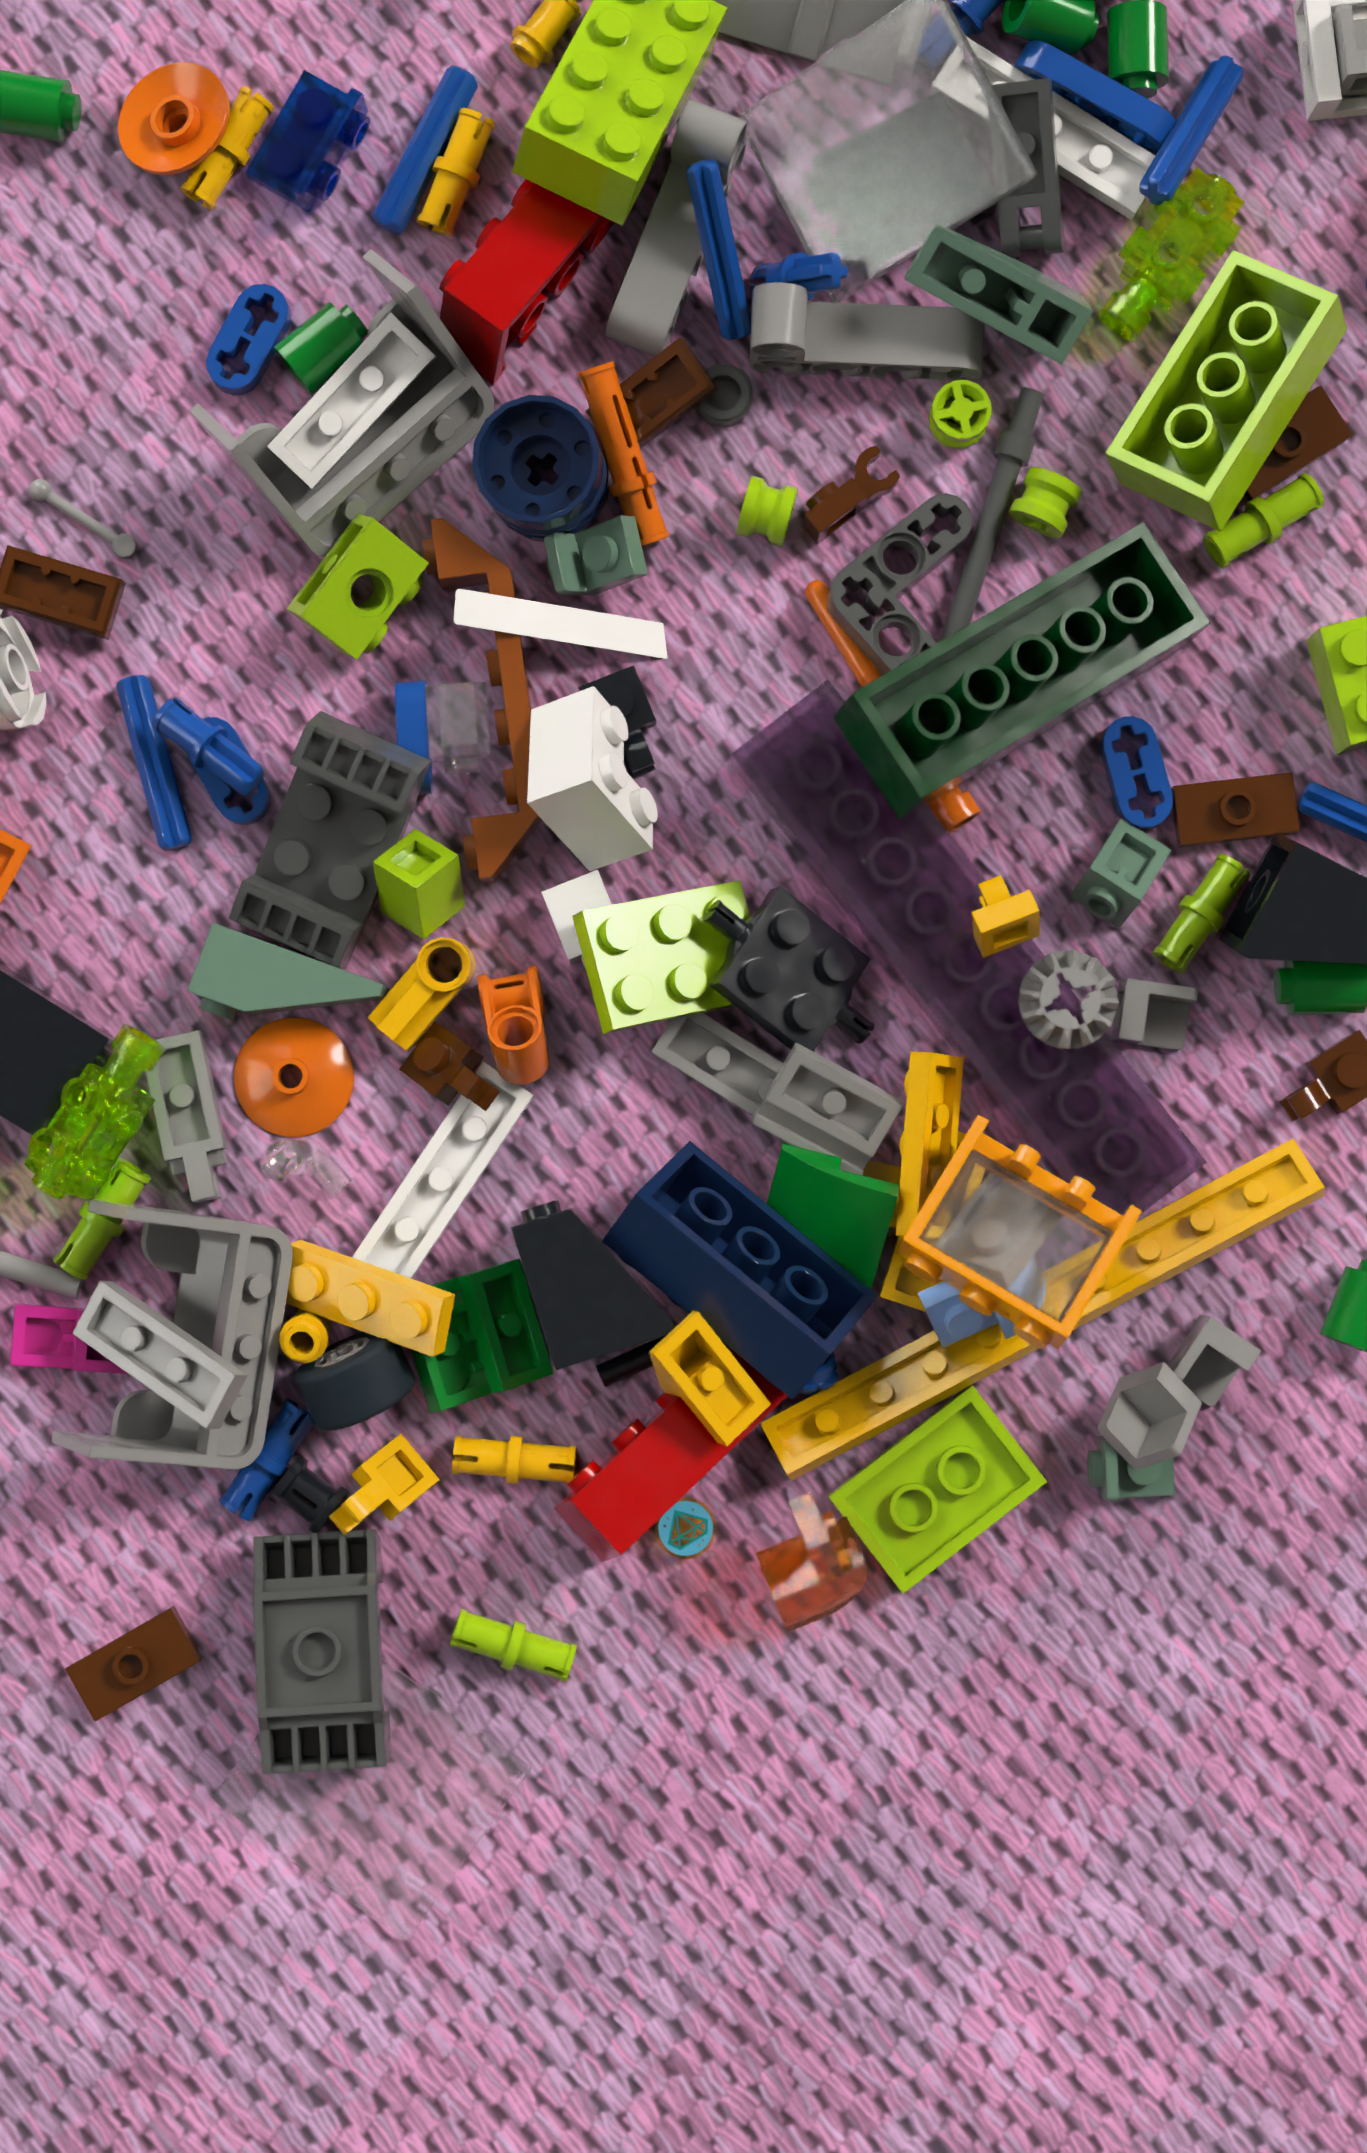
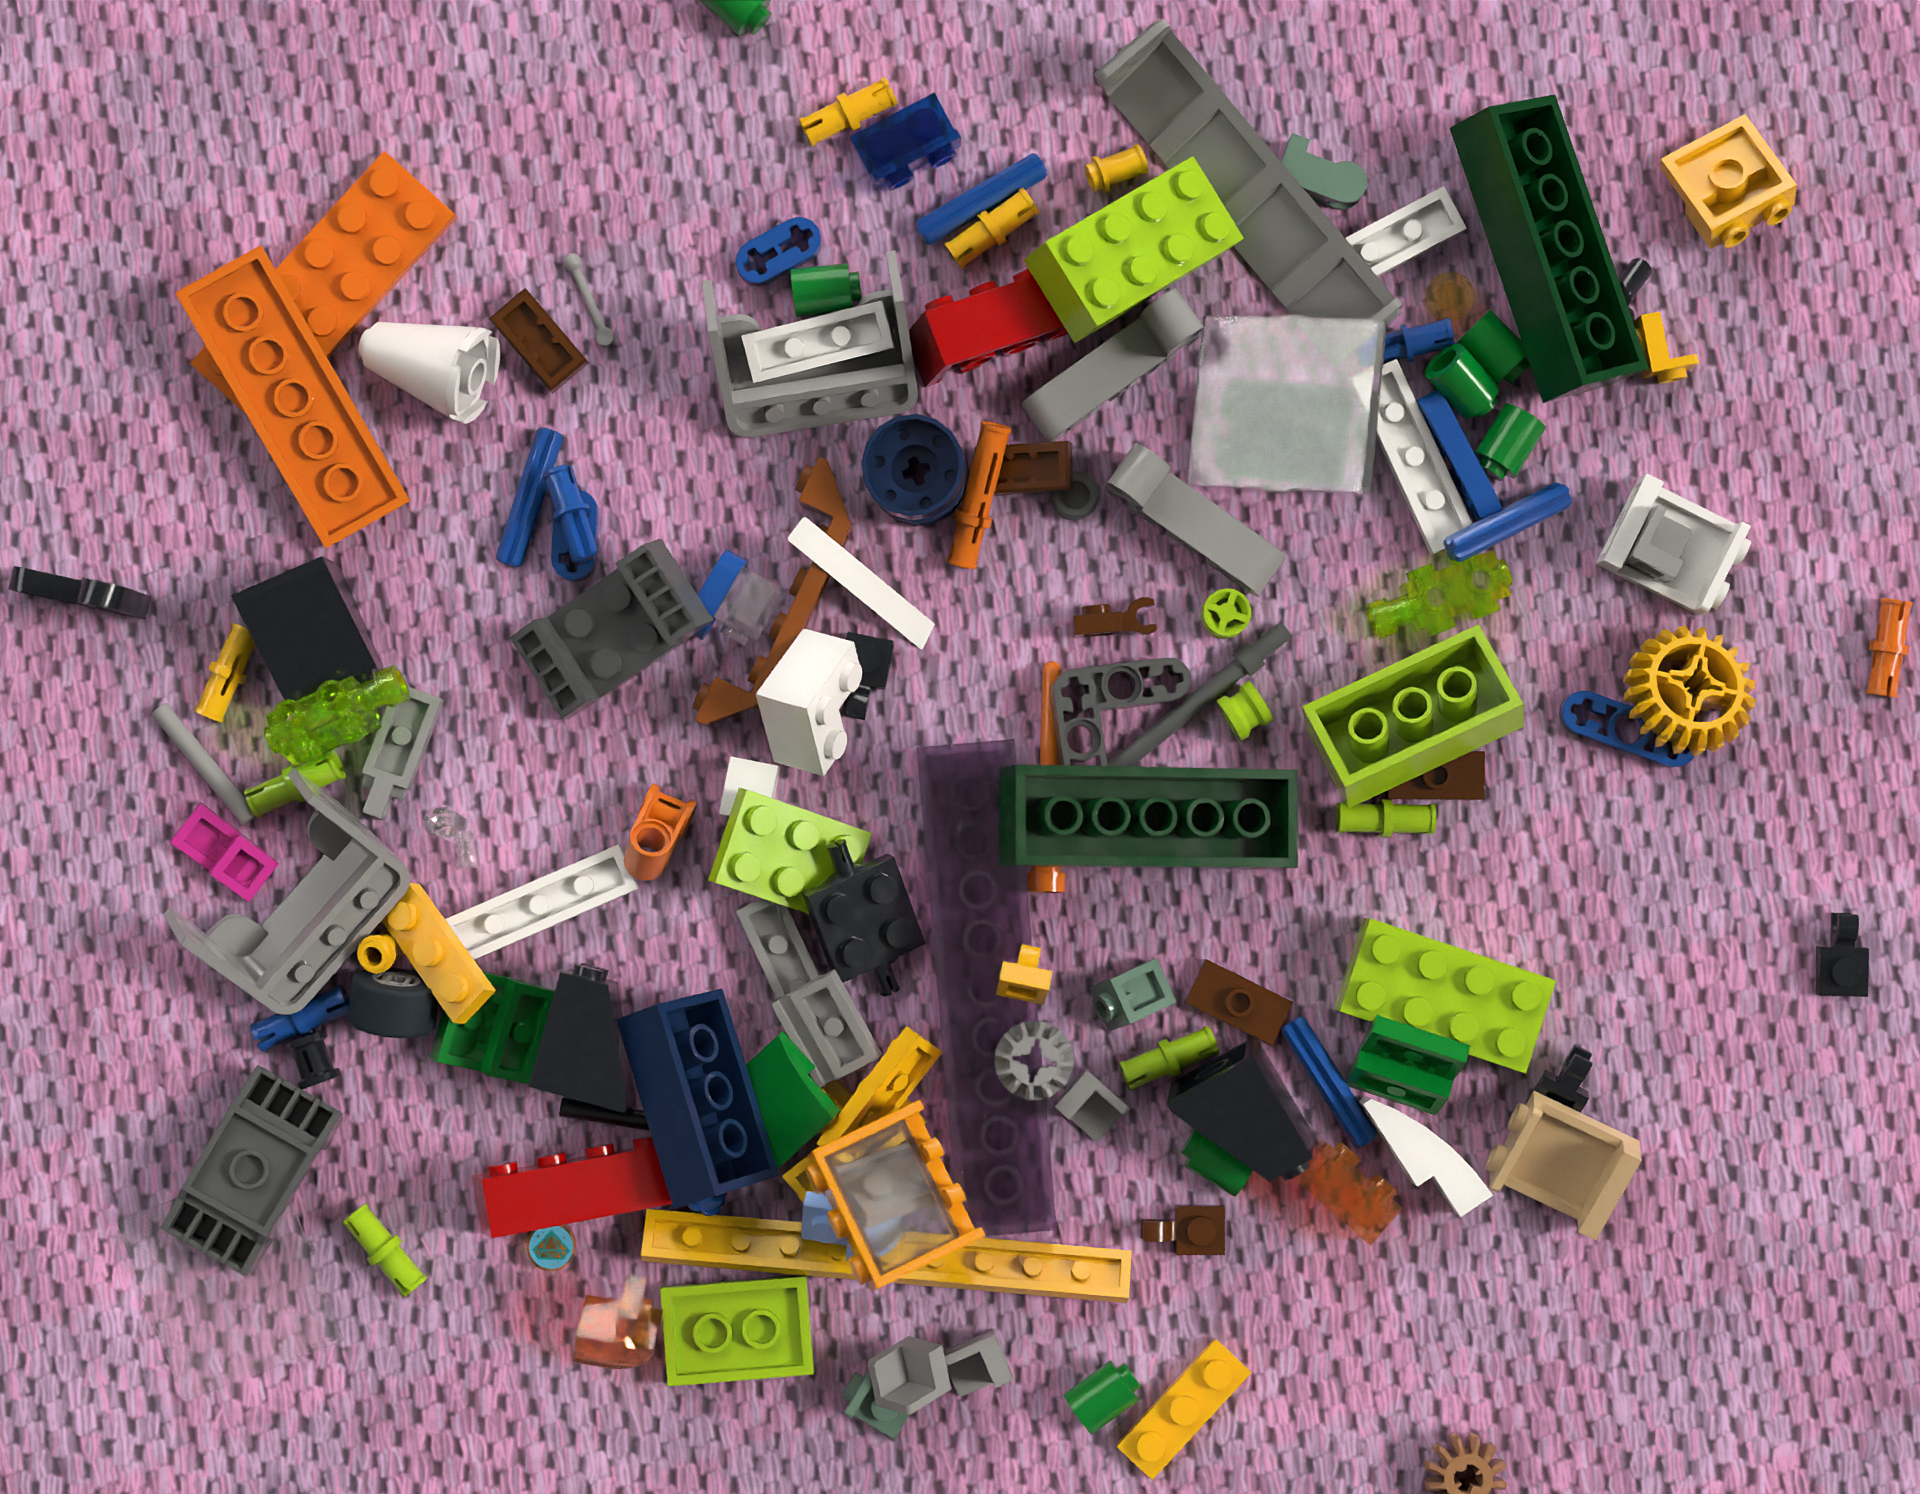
camera: 30 degrees right, 0 degrees up
(134, 1663) = (123, 1096): reddish brown plate -> none
(160, 1354) = (272, 903): light grey plate -> none
(164, 102) = (820, 54): orange dish -> none
(265, 978) = (506, 689): sand green slope -> none
(324, 1083) = (510, 776): orange dish -> none
(326, 596) = (756, 447): lime brick -> none
(388, 1482) = (372, 1086): yellow plate -> none
(419, 883) = (653, 696): lime panel -> none
(419, 995) = (606, 771): yellow piece -> none
(446, 1067) = (590, 832): reddish brown plate -> none
(513, 1459) = (466, 1125): yellow pin -> none
(596, 557) = (915, 552): sand green bracket -> none
(708, 1378) = (626, 1158): yellow slope -> none
(719, 249) = (1132, 398): blue axle -> none
(767, 511) = (1052, 594): lime wheel -> none
(814, 273) = (1175, 451): blue axle -> none
(1000, 292) = (1303, 553): sand green slope -> none
(1032, 117) = (1396, 449): dark grey plate -> none
(1150, 770) = (1199, 937): blue beam -> none

